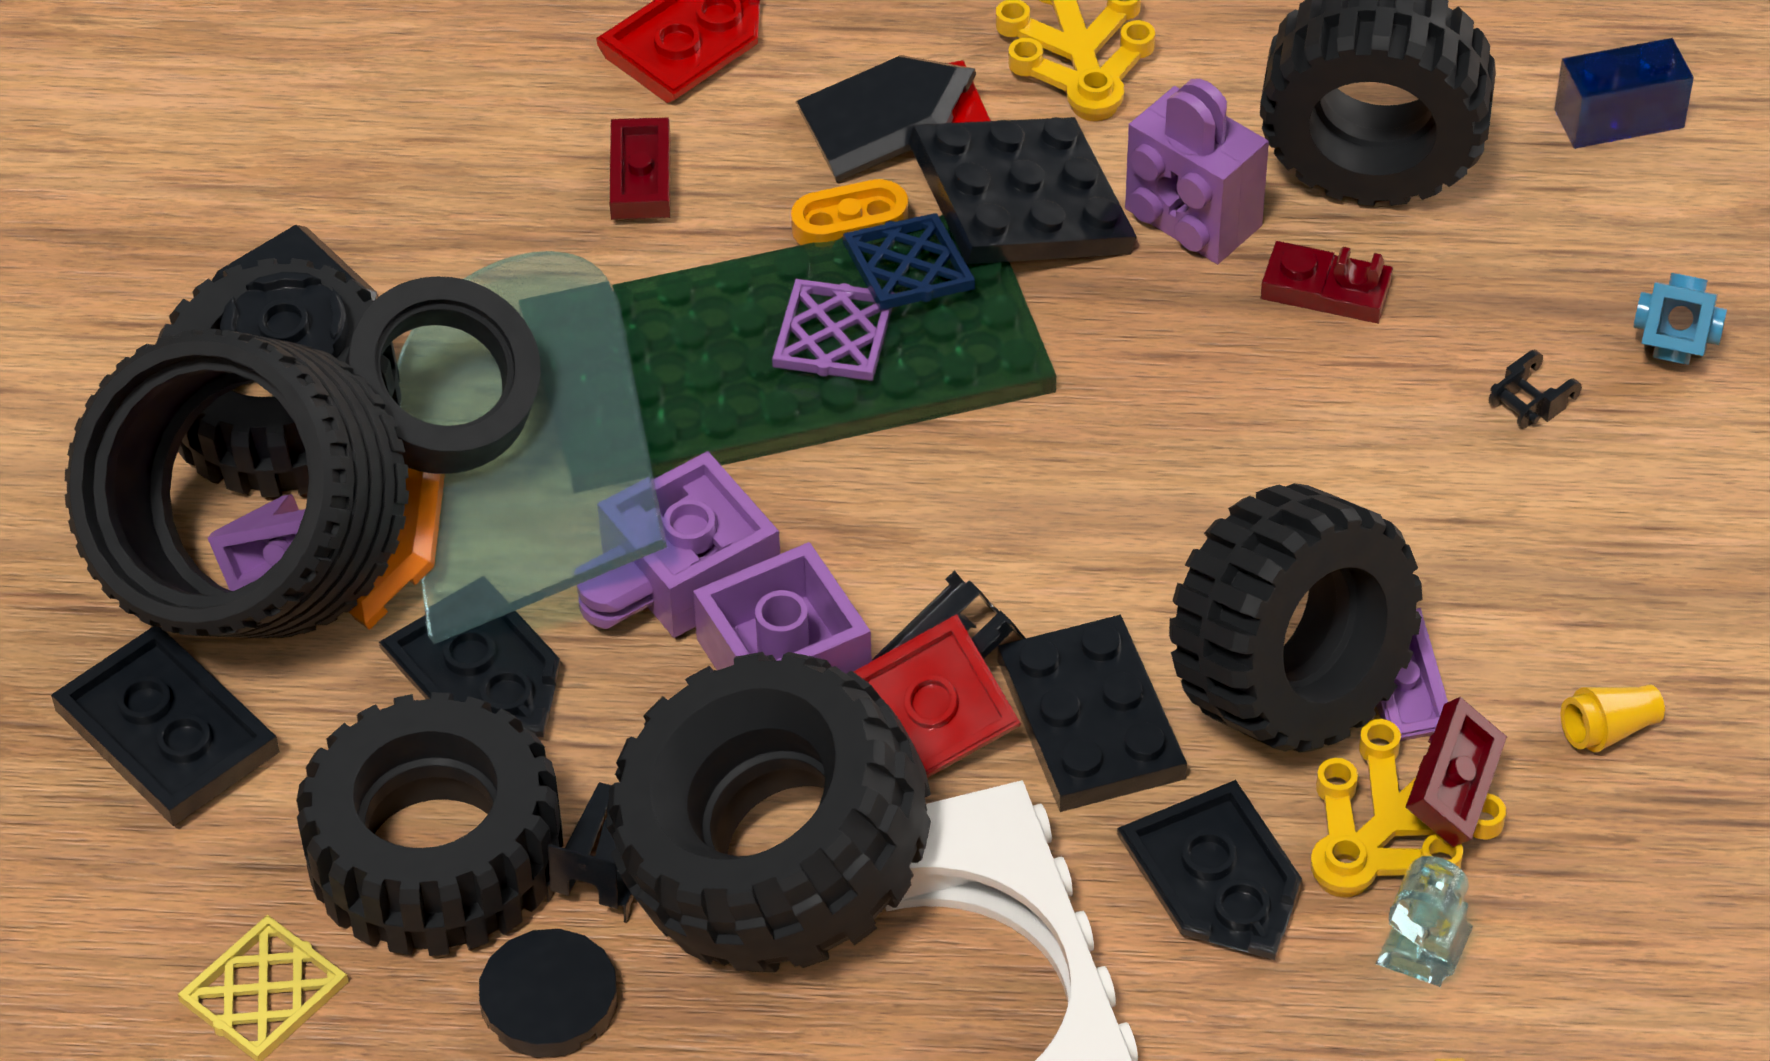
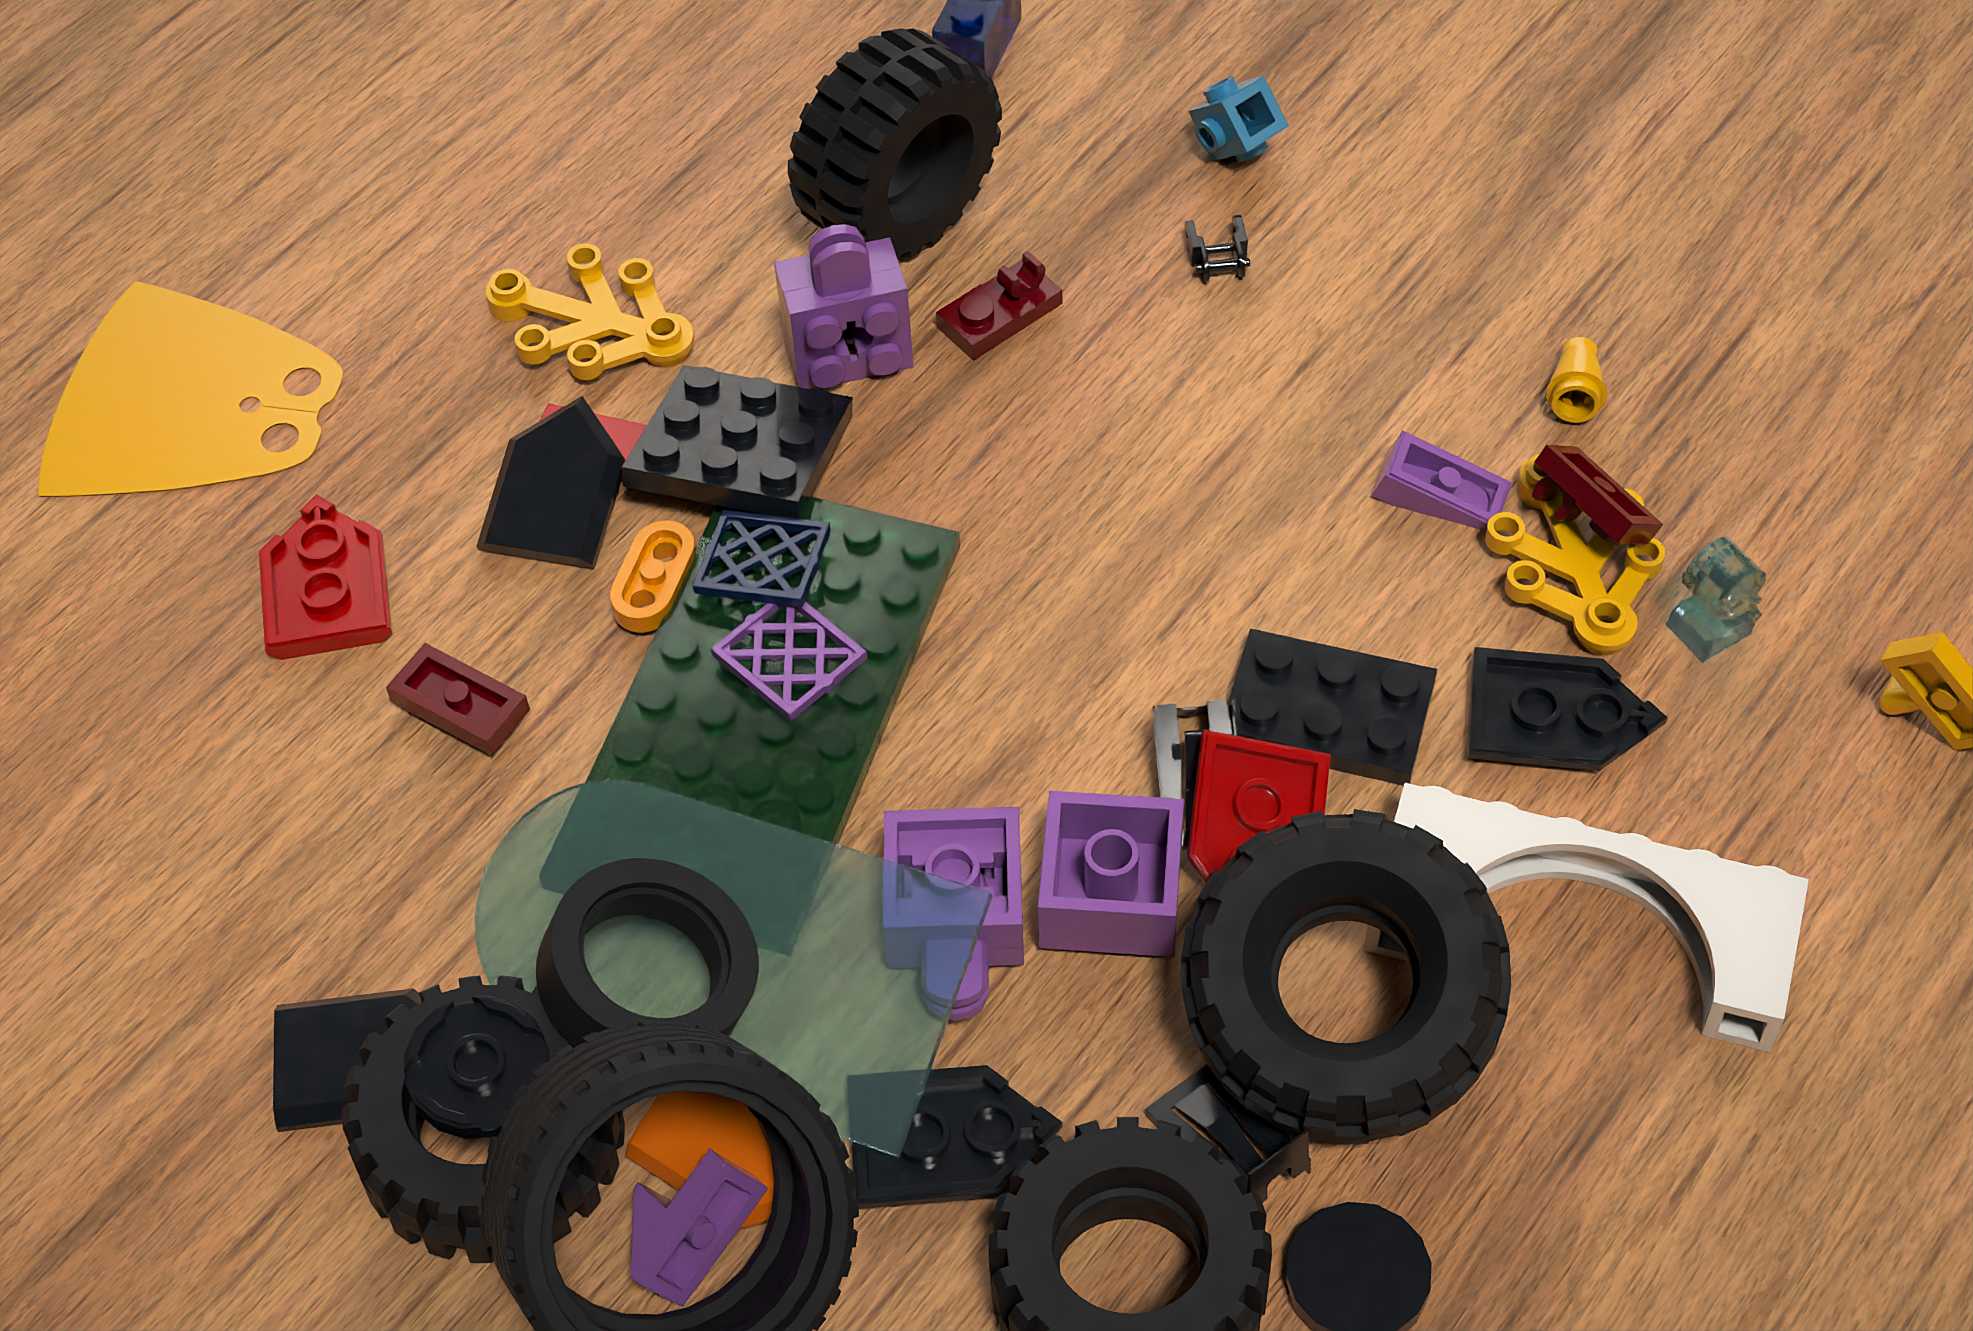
camera: 55 degrees left, 5 degrees up
(1244, 596) = (1410, 496): black tyre -> none

